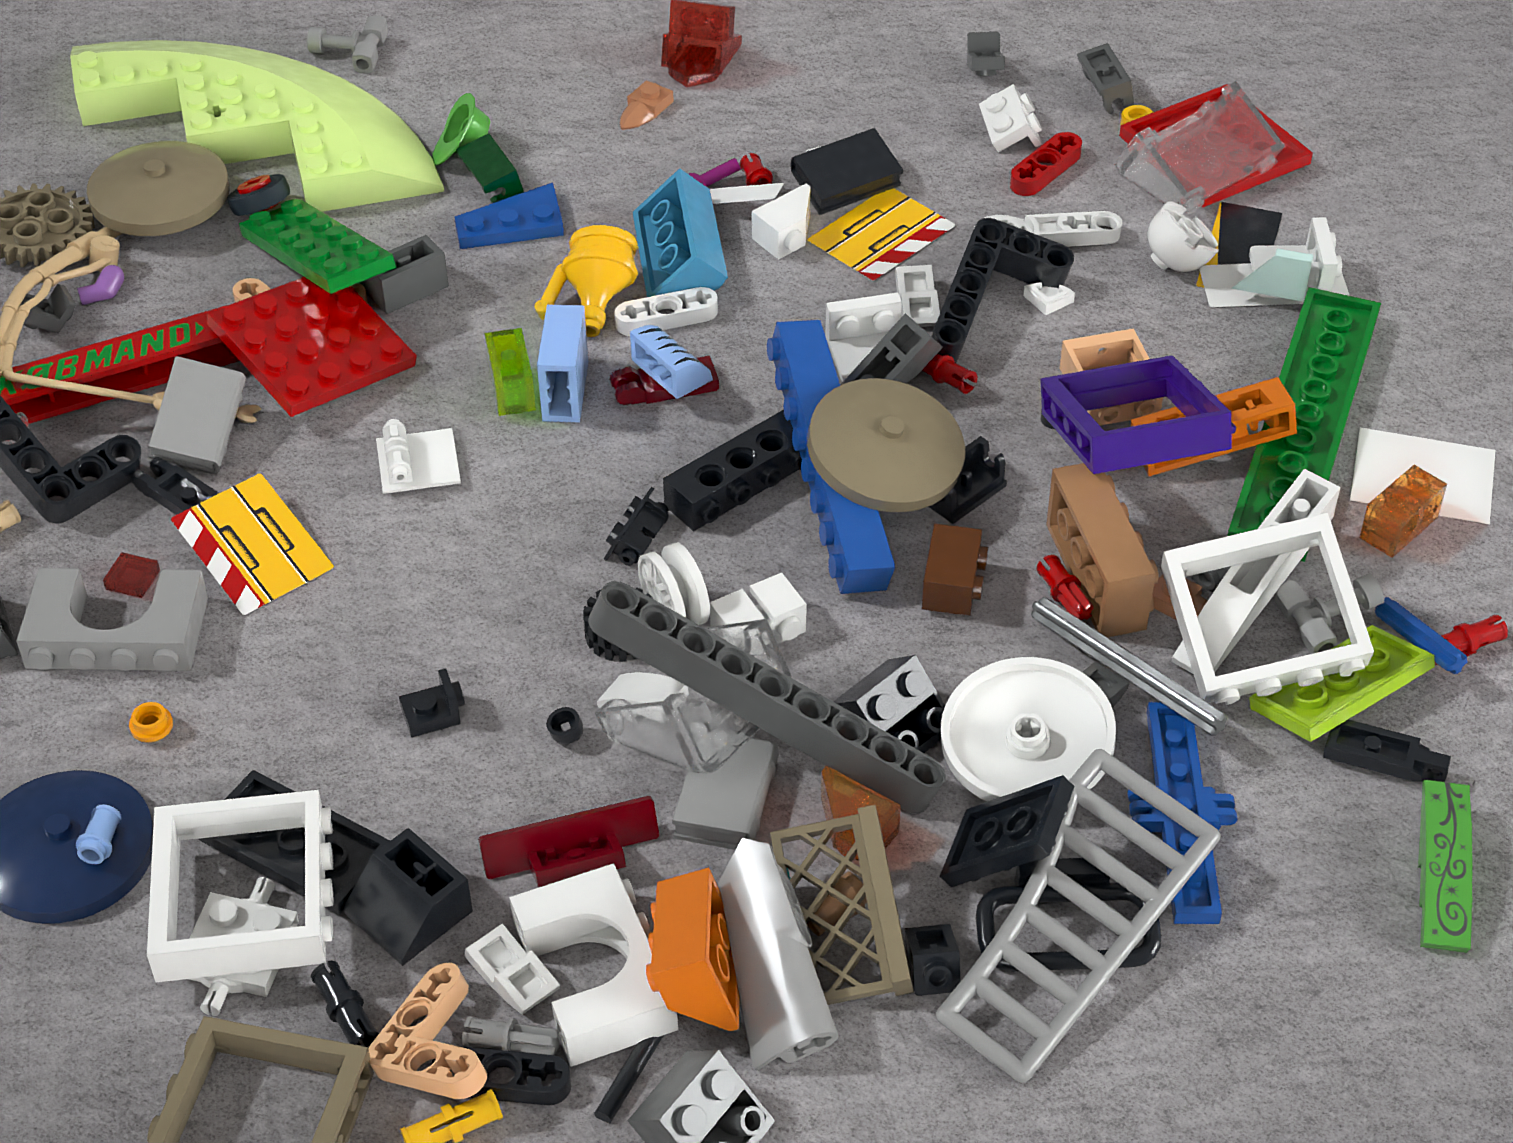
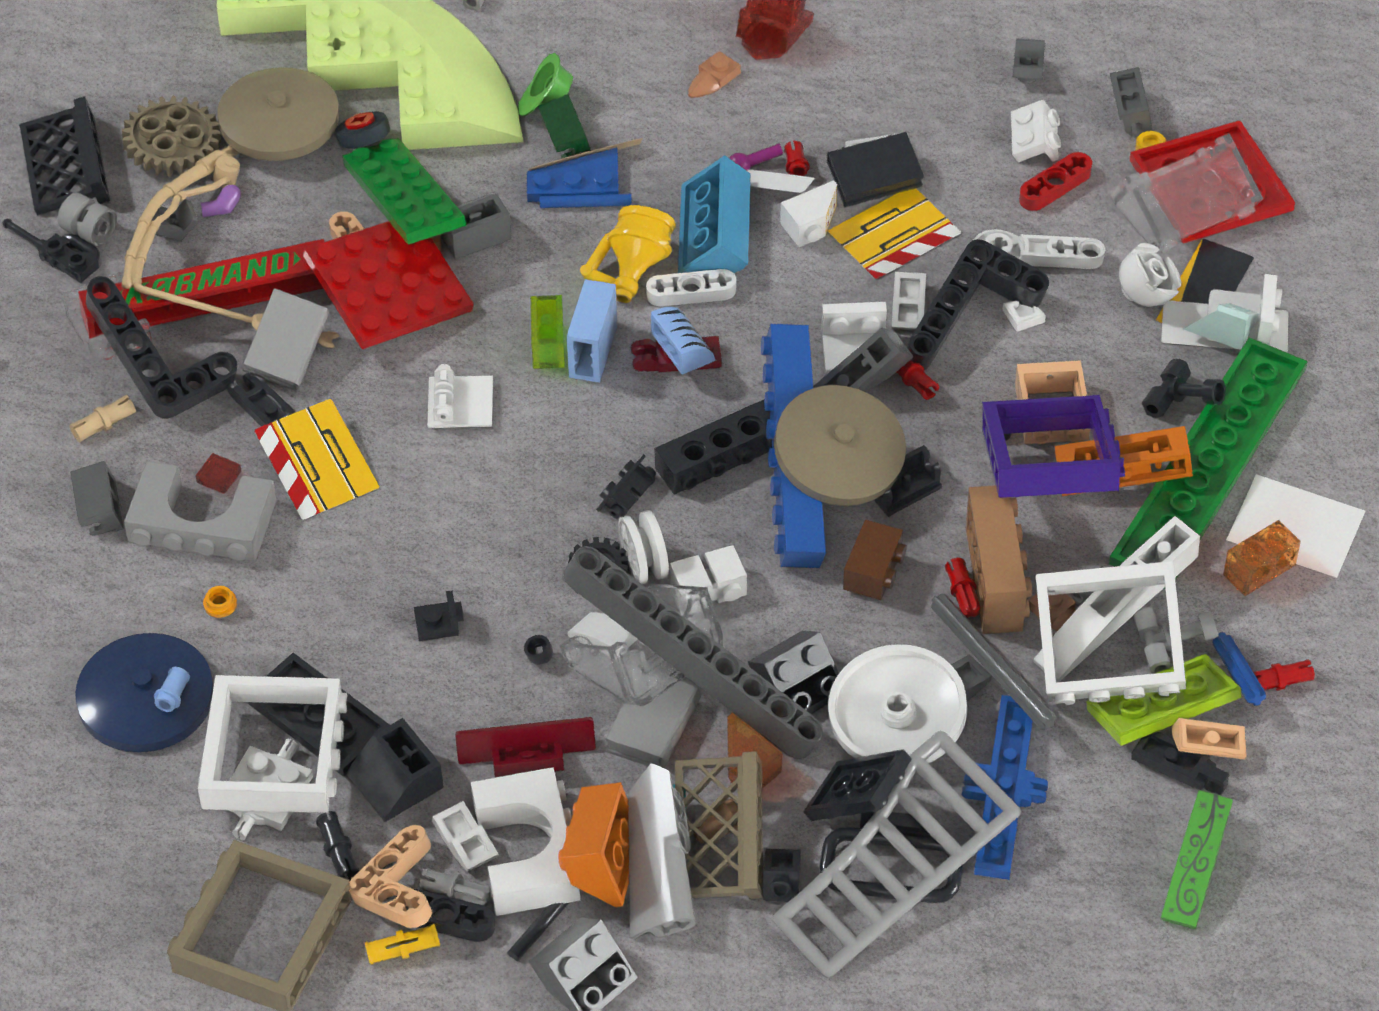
camera: 10 degrees right, 5 degrees up
(524, 239) = (572, 201): none -> blue bar
(558, 180) = (620, 146): none -> tan sticker
(1243, 347) = (1176, 388): none -> black bar
(1413, 718) = (1209, 738): none -> light nougat slope

